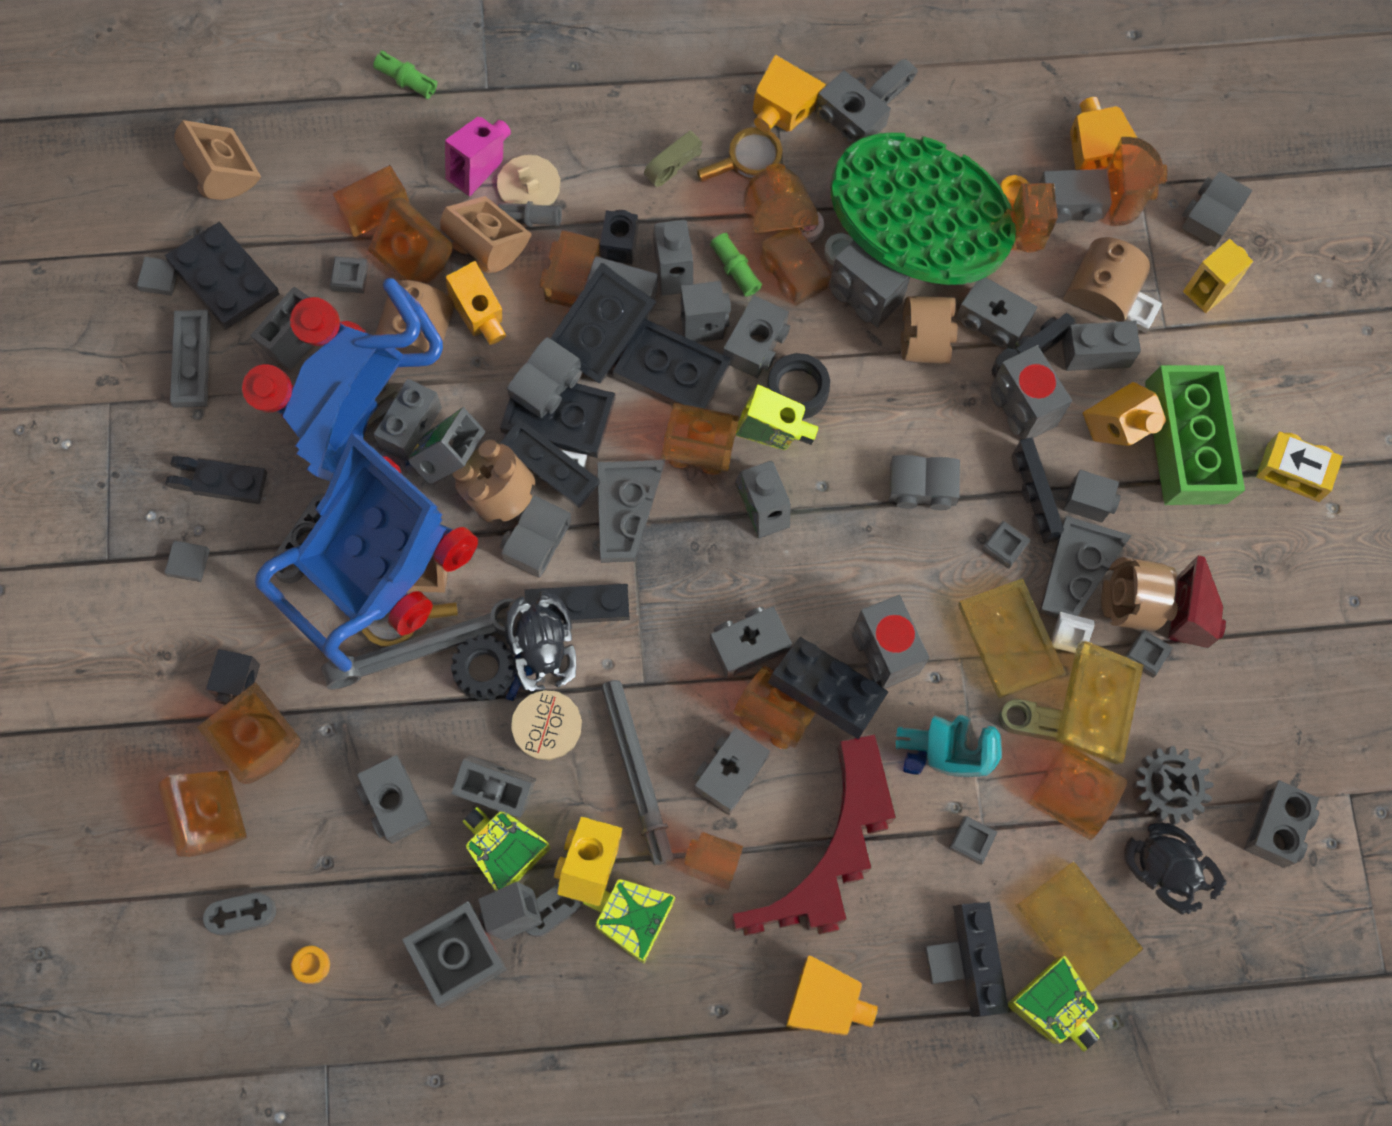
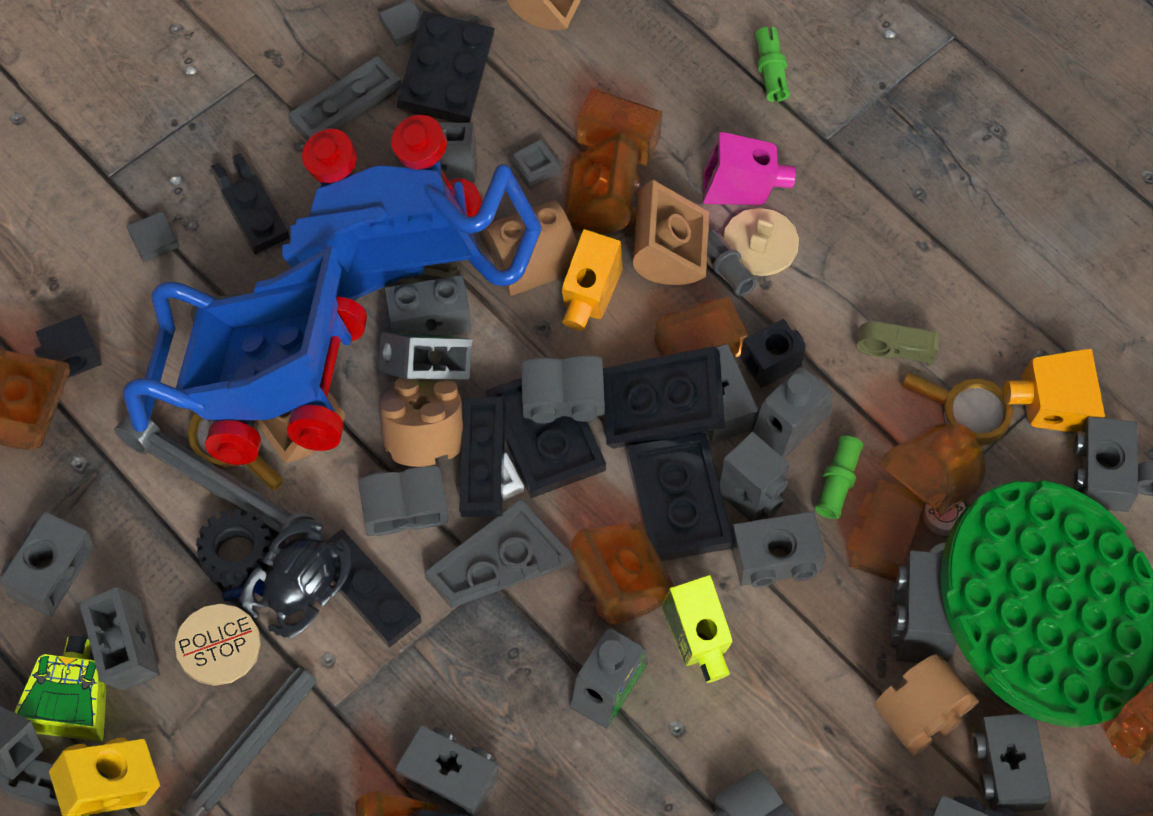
camera: 55 degrees right, 10 degrees down
(807, 364) = (771, 598): black tyre -> none

